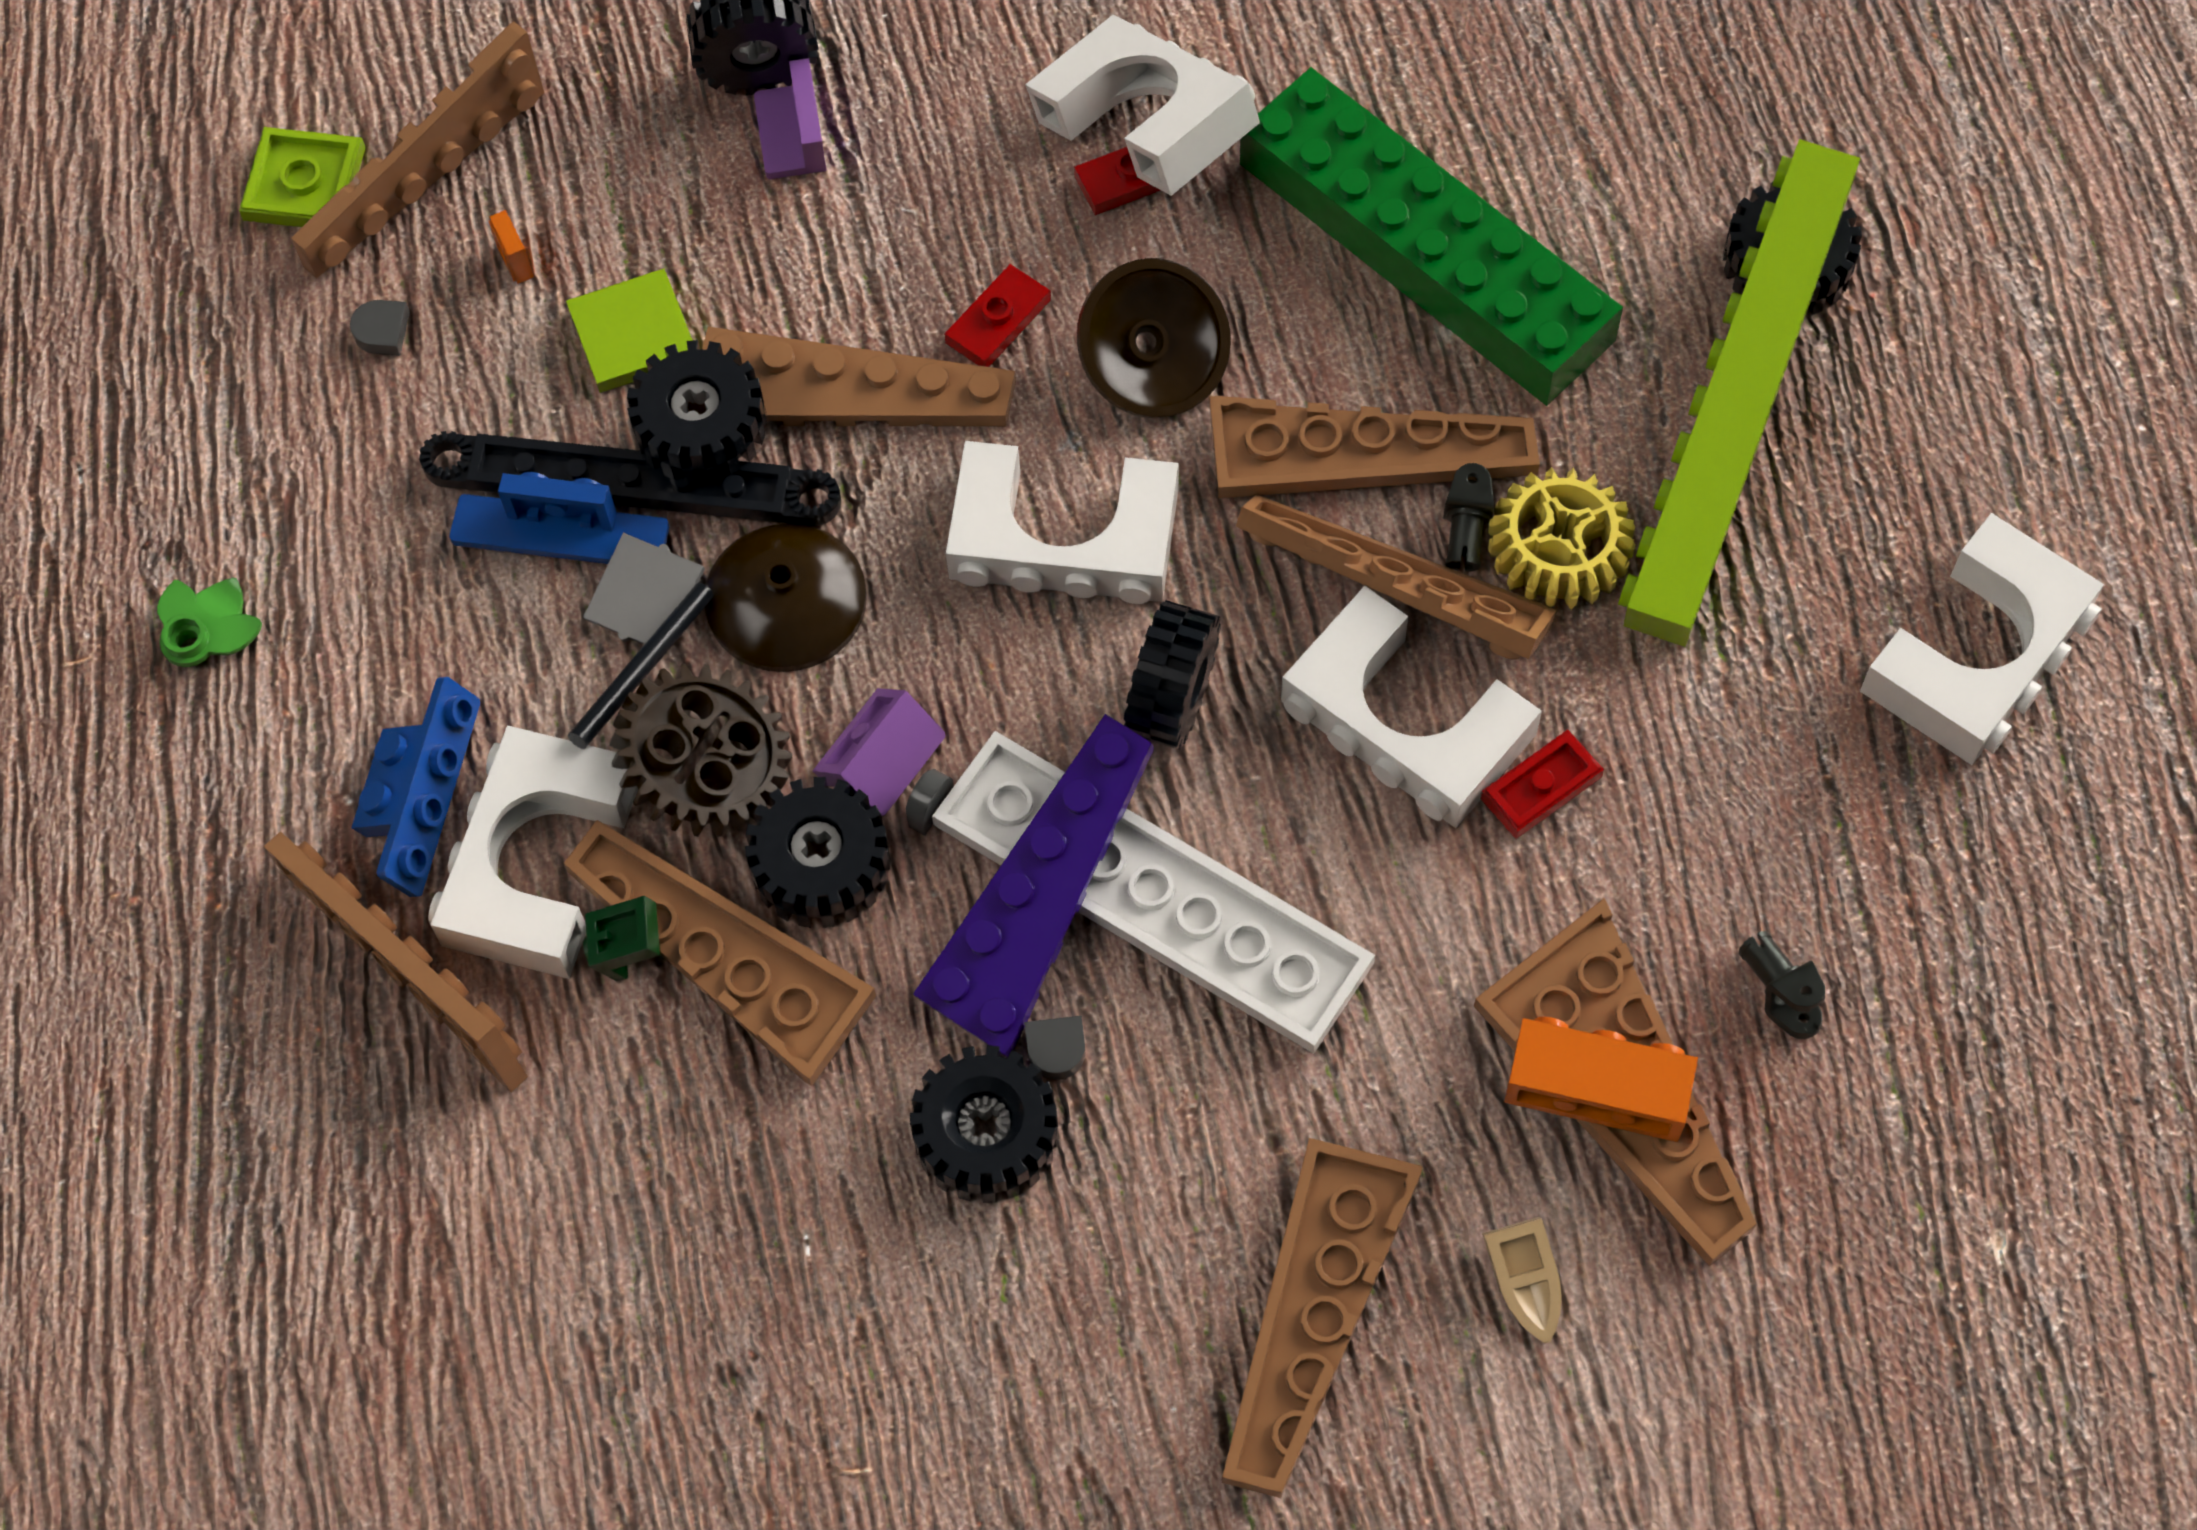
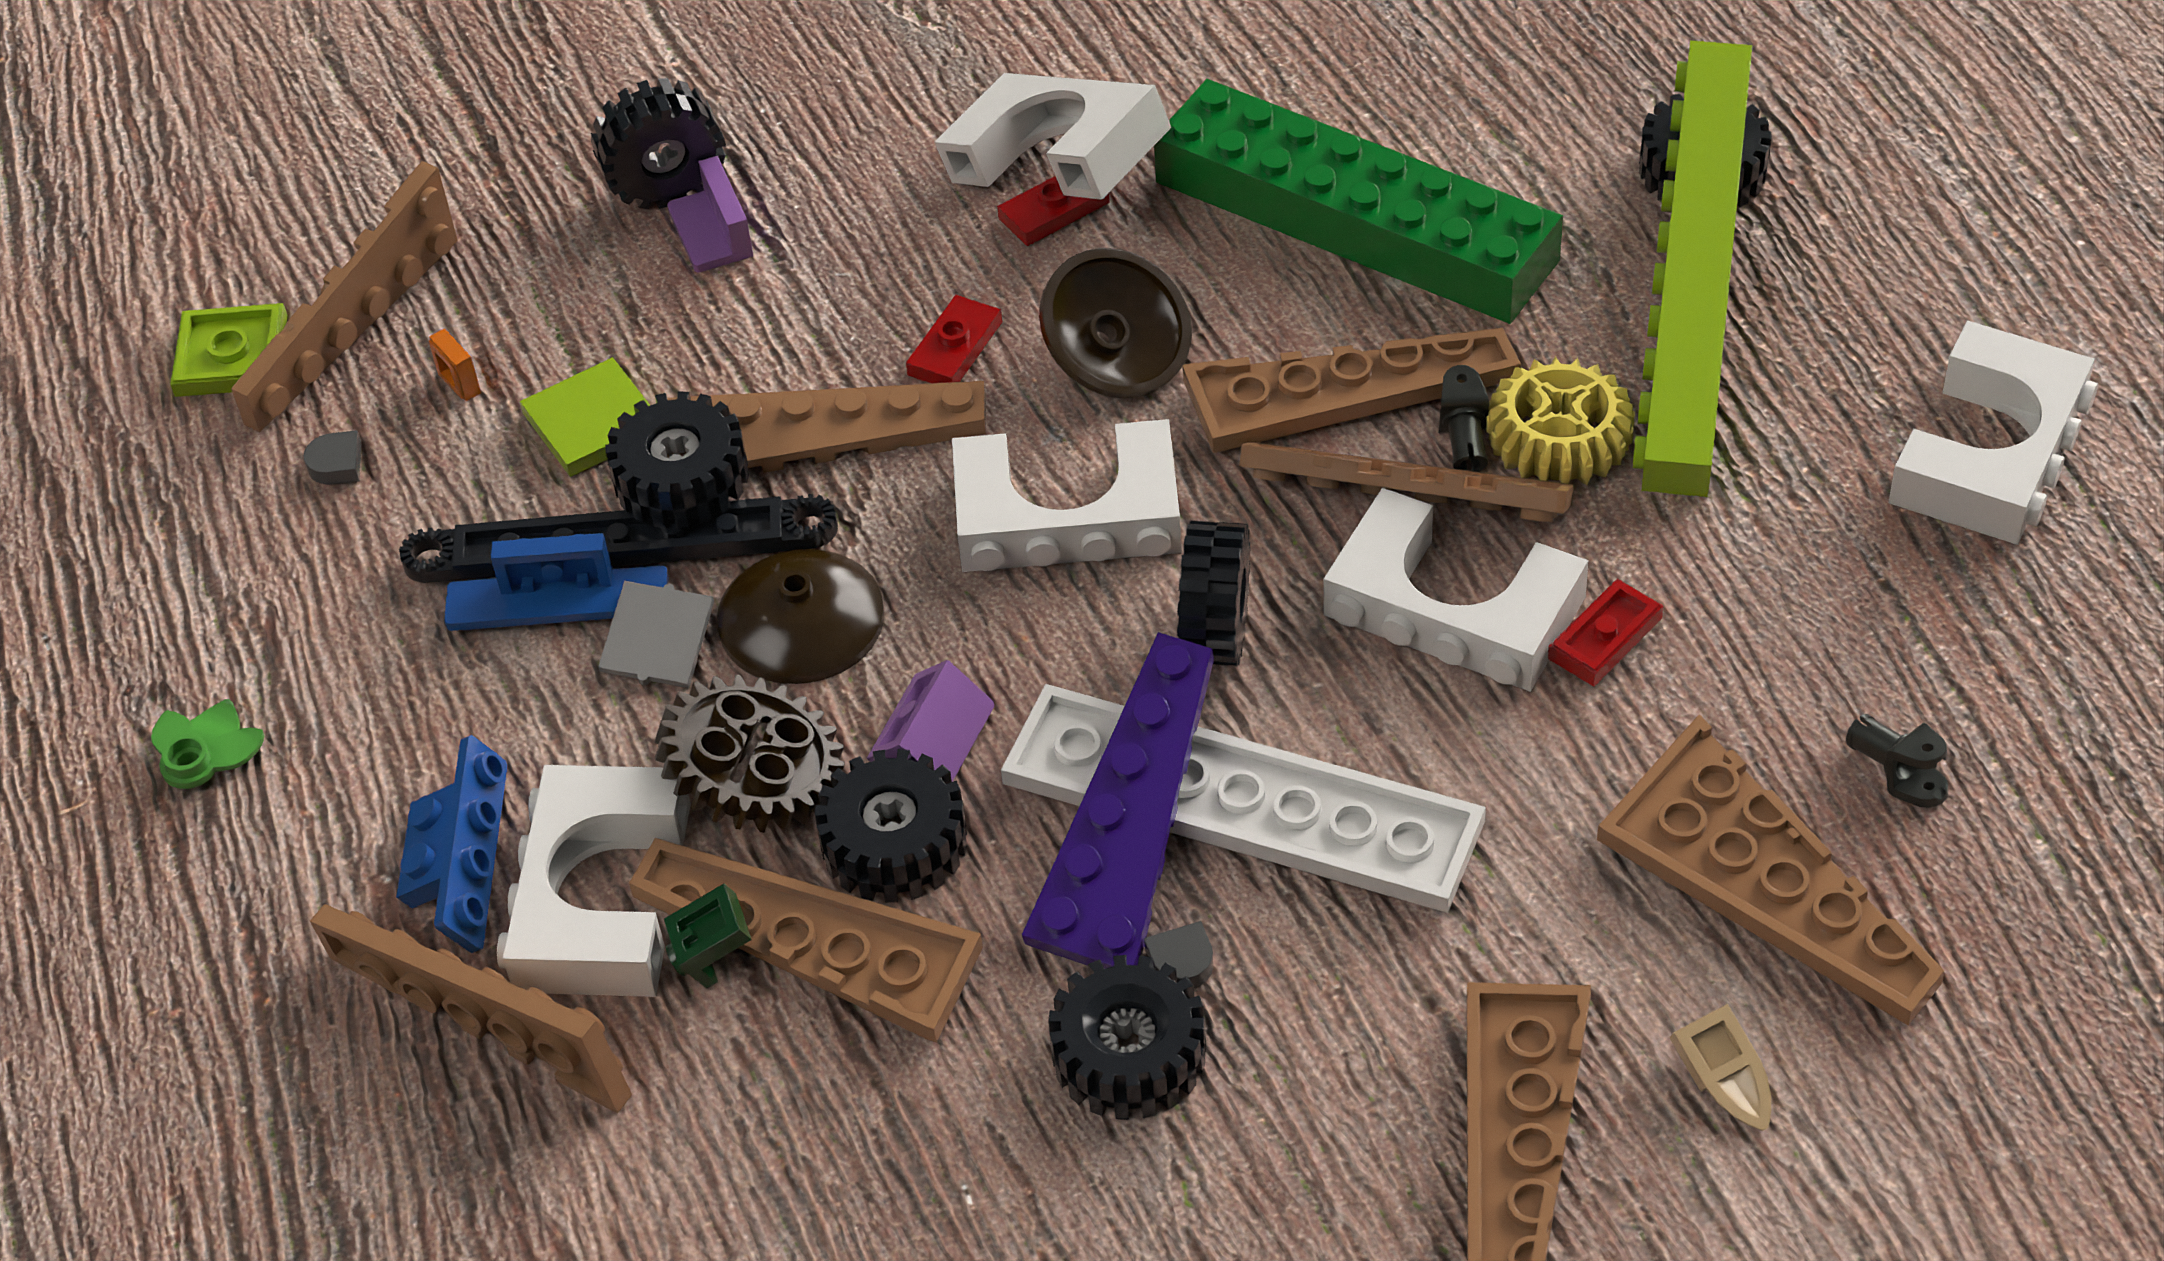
camera: 10 degrees left, 15 degrees down
(640, 665) = (675, 681): black bar -> none
(926, 798) = (989, 759): dark grey tile -> none
(1601, 1078) = (1749, 864): orange brick -> none

